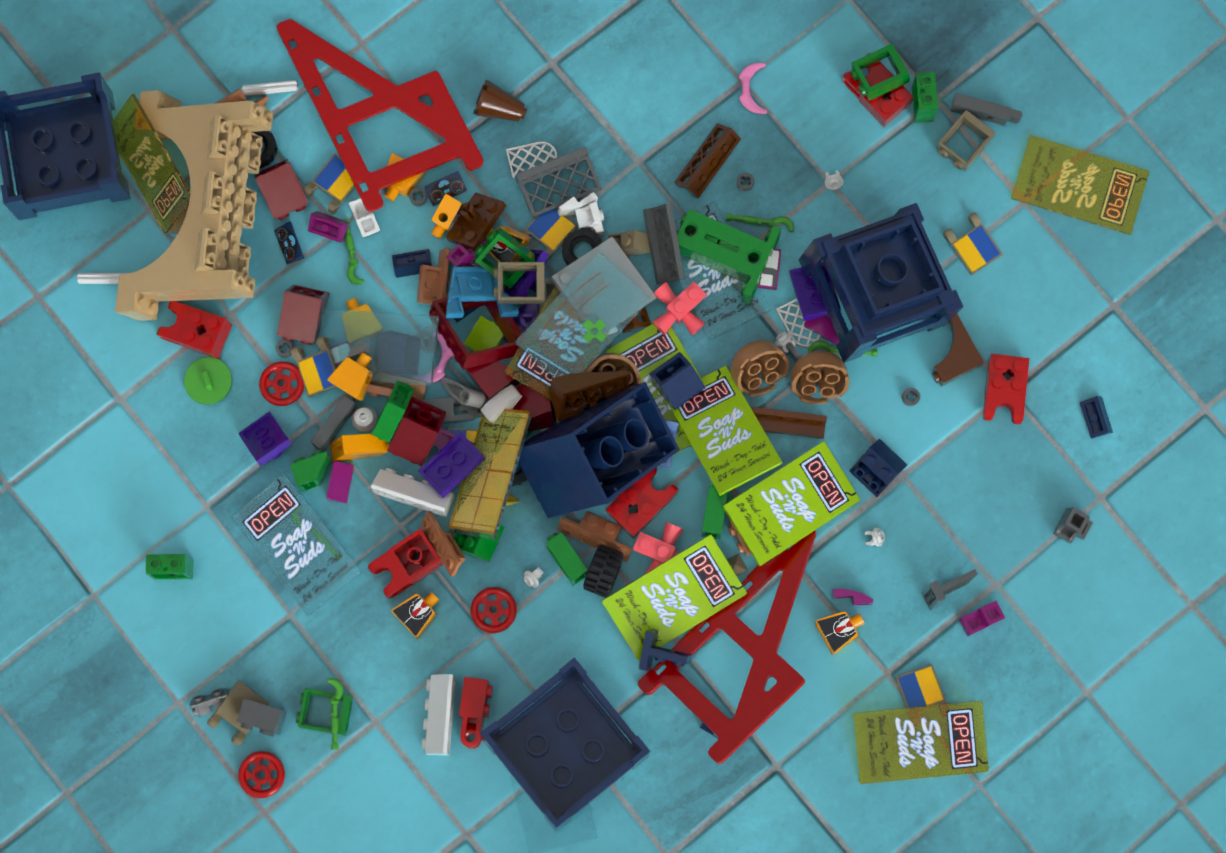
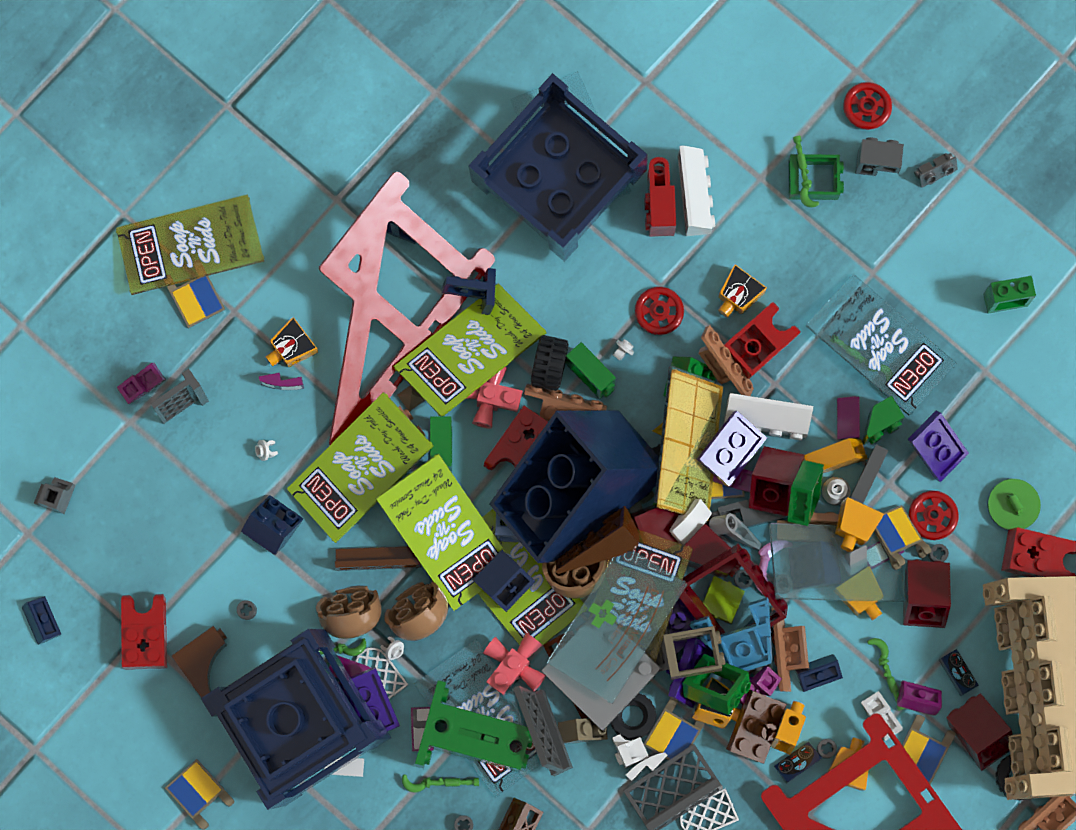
camera: 165 degrees right, 0 degrees up
(230, 709) = (912, 164): dark tan flag -> none

